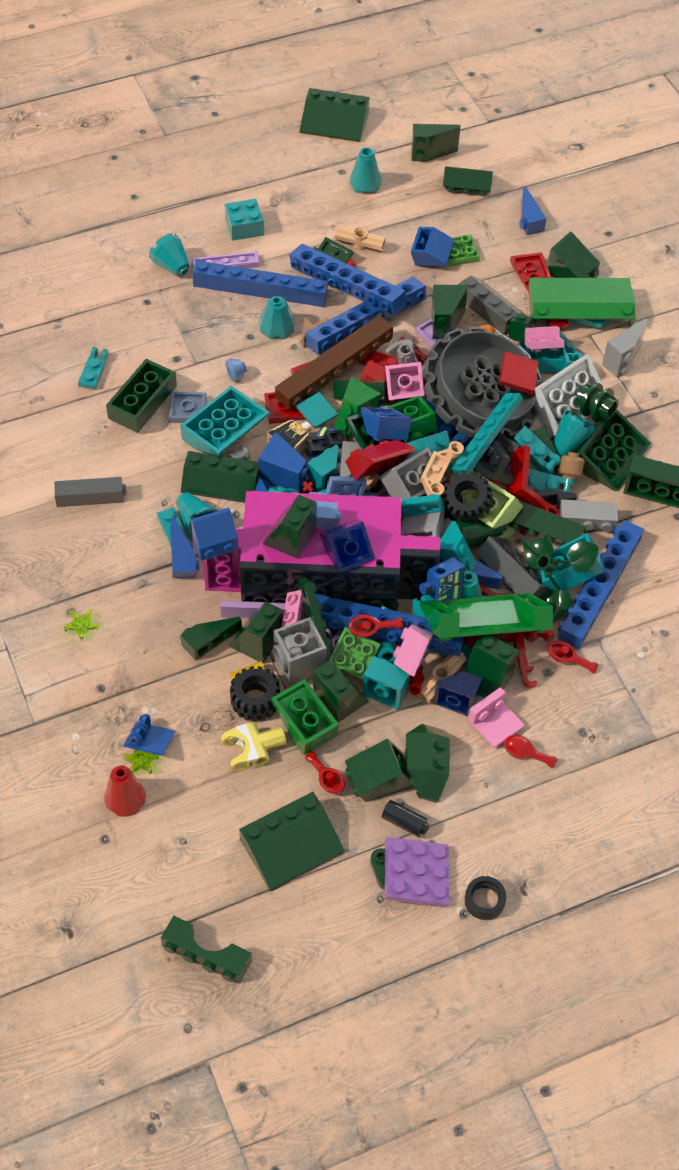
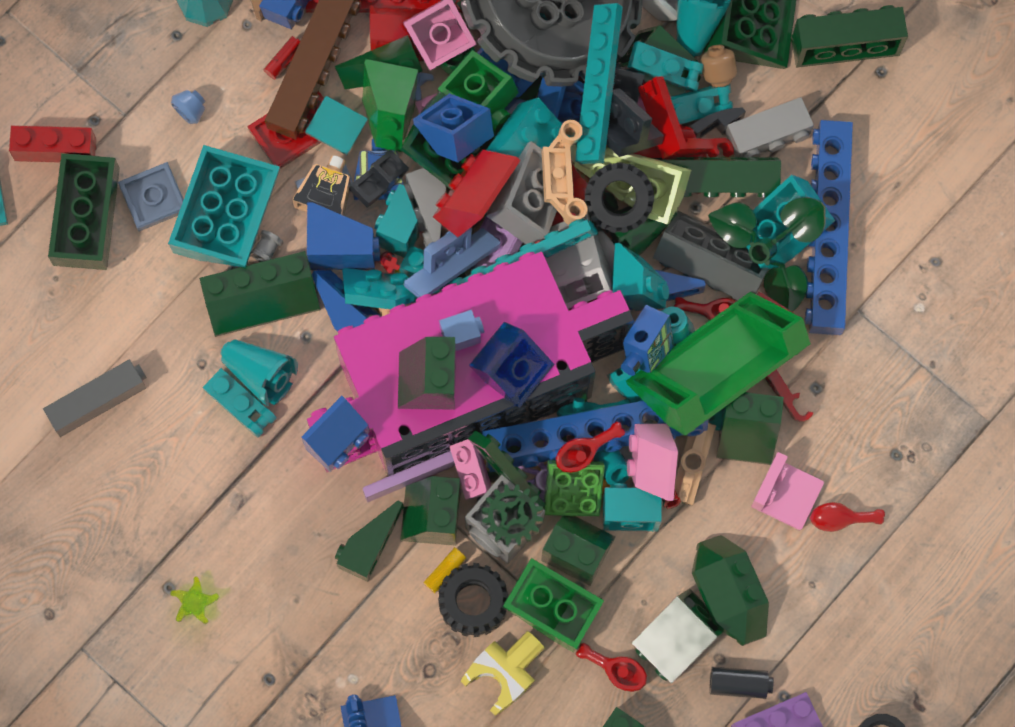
camera: 25 degrees left, 20 degrees up
(135, 352) = (48, 142): none -> red brick
(183, 556) = (276, 443): blue slope -> none
(303, 638) = (523, 522): none -> dark green gear
(458, 692) = (730, 479): clear blue slope -> none
(565, 653) = (828, 354): red piece -> none

